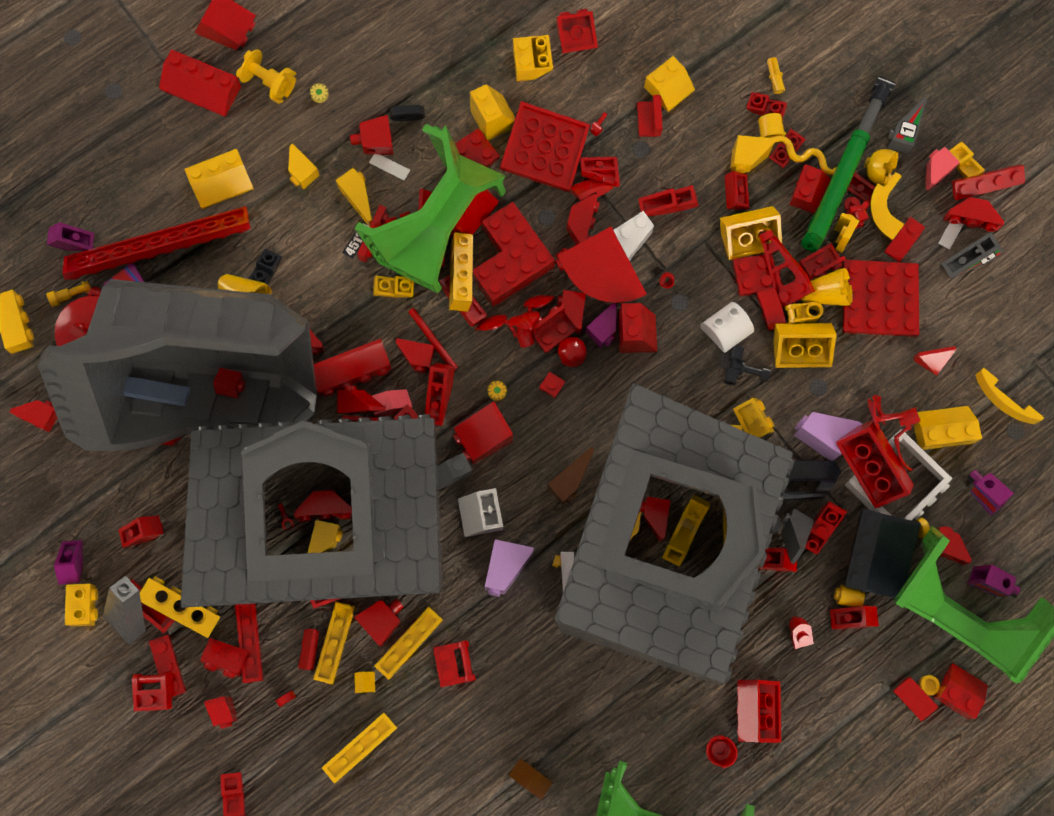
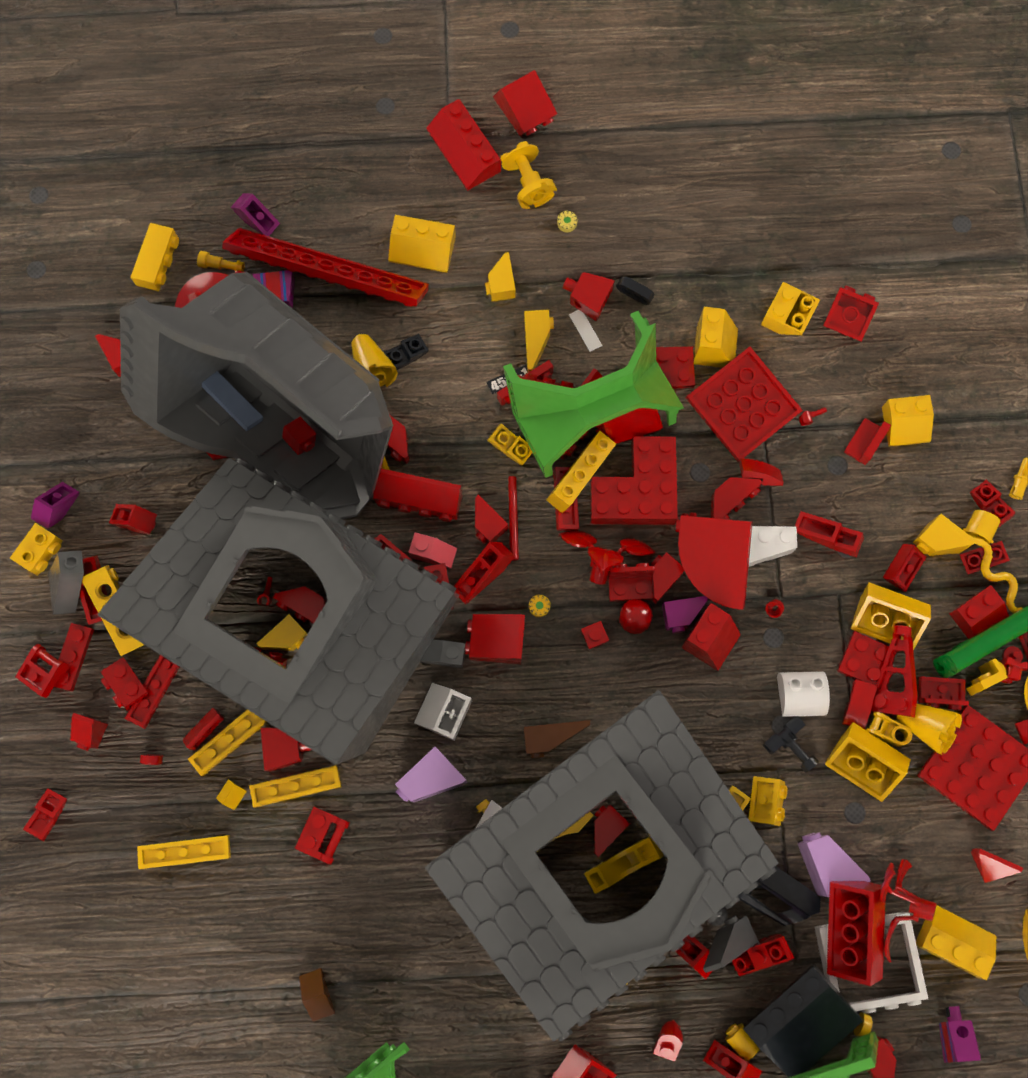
camera: 40 degrees right, 0 degrees up
(357, 402) = (401, 530): red slope -> none
(601, 169) = (783, 460): red wing -> none

